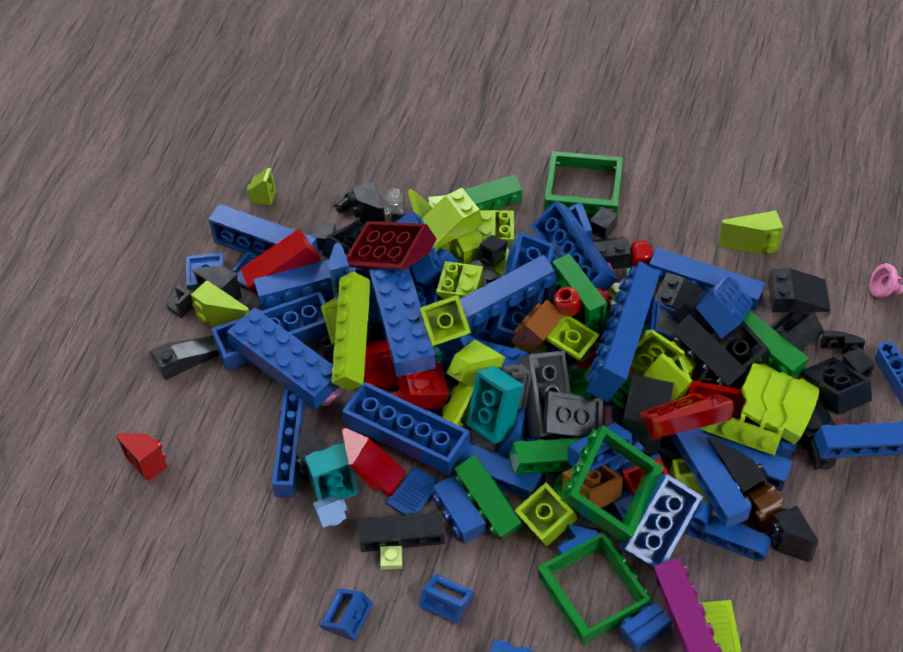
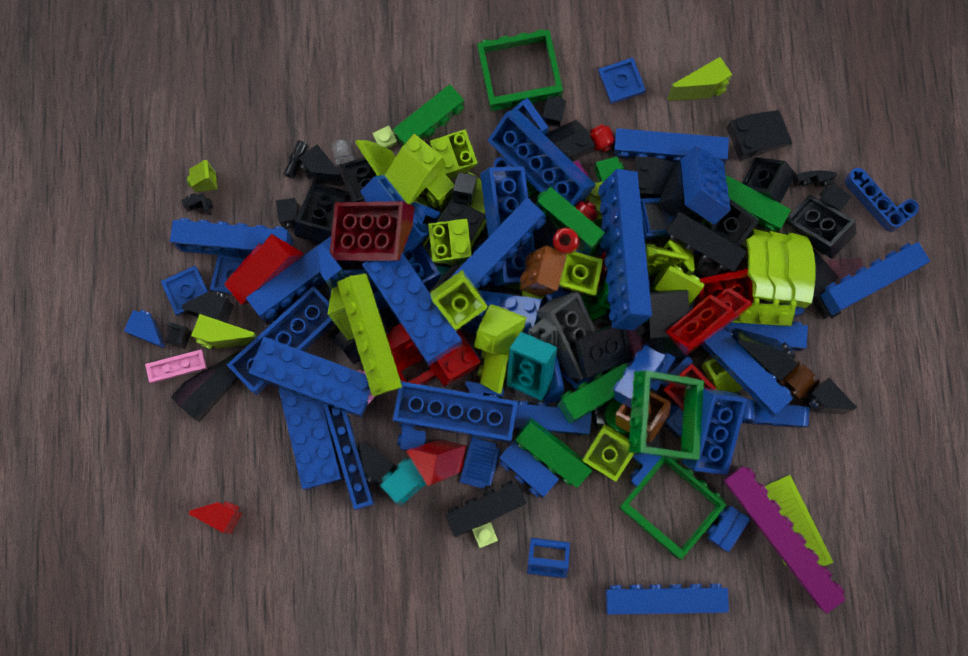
camera: 20 degrees left, 25 degrees up
(152, 288) = (144, 327): none -> blue slope
(166, 326) = (176, 366): none -> bright pink plate
(248, 205) = (197, 201): none -> black bracket
(258, 421) = (311, 441): none -> blue brick
(330, 510) = (414, 511): light blue brick -> none
(352, 618) = (476, 603): blue tile -> none
(677, 216) = (621, 81): none -> blue plate
(885, 281) = (835, 99): bright pink hair -> none

